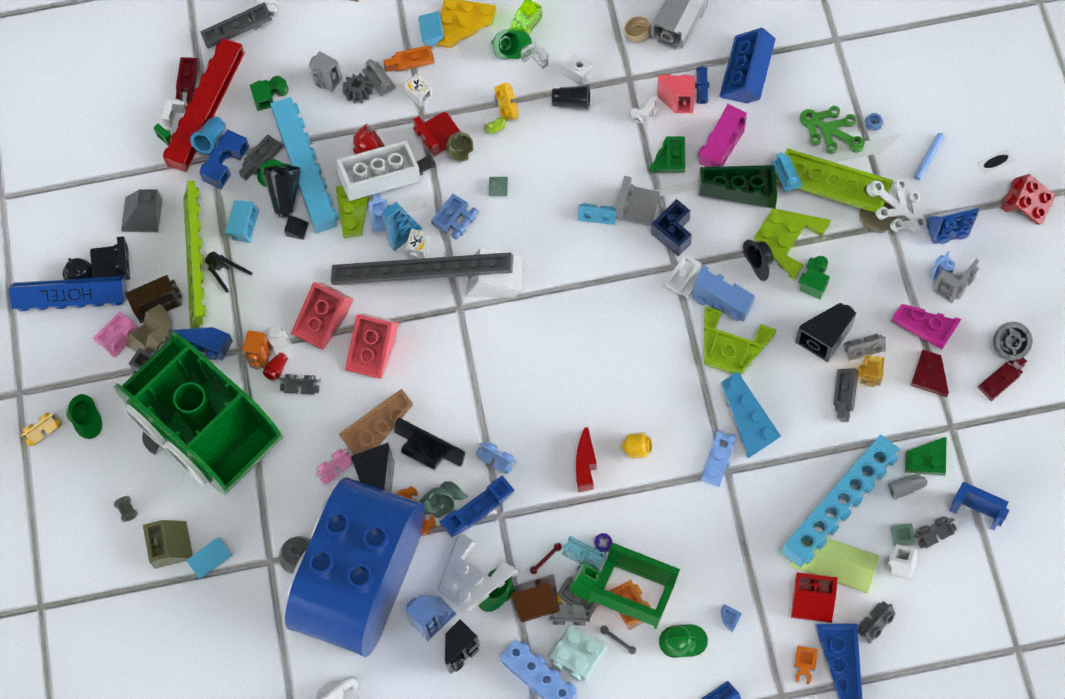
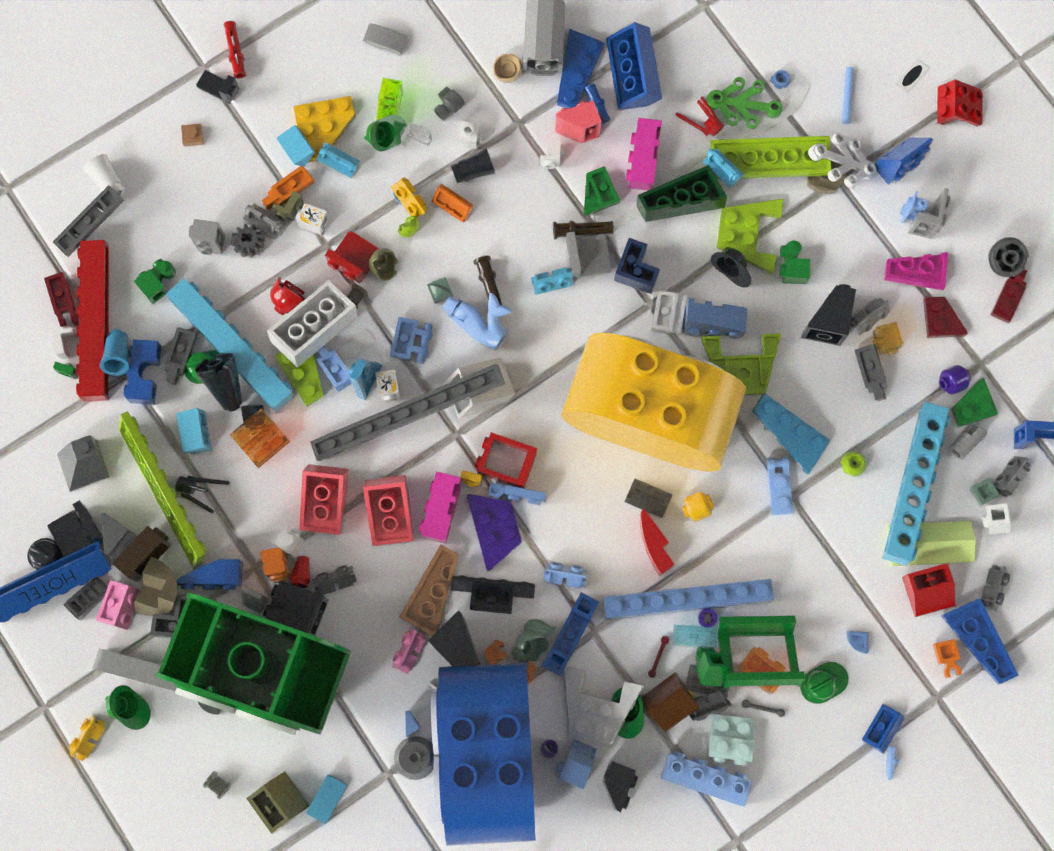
camera: 30 degrees left, 10 degrees up
(92, 313) = (76, 598): none -> dark grey slope
(102, 388) = (130, 668): none -> light grey beam
(137, 273) = (115, 536): none -> dark grey slope
(226, 367) = (253, 599): none -> light grey slope
(262, 389) = (296, 607): none -> black slope
(292, 245) = (259, 438): none -> clear orange brick
(307, 525) = (411, 724): none -> medium blue slope
(404, 74) = (290, 210): none -> olive bracket
(416, 358) = (440, 507): none -> dark pink wedge
(417, 591) = (552, 746): none -> dark purple hinge
(452, 346) = (471, 479): none -> yellow tile
(454, 395) = (495, 528): none -> dark purple wing
(461, 51) = (337, 160): none -> medium azure hinge
(484, 373) = (516, 493): none -> medium blue hinge
(502, 356) = (526, 468): none -> red window
(512, 220) = (471, 321): none -> light blue piece
(540, 119) = (452, 203): none -> orange plate
(542, 189) = (487, 276): none -> dark brown pin
(577, 40) = (451, 103): none -> dark grey piece
(592, 518) = (688, 599): none -> medium blue brick
(597, 421) = (648, 498): none -> clear smoke hinge
(633, 336) = (654, 401): none -> yellow brick
(642, 180) = (561, 229): none -> dark brown pin
(700, 49) = (579, 63): none -> blue wing
(794, 471) = (847, 463): none -> lime plate
(796, 137) = (712, 124): none -> red plant
(917, 428) = (954, 379): none -> dark purple head

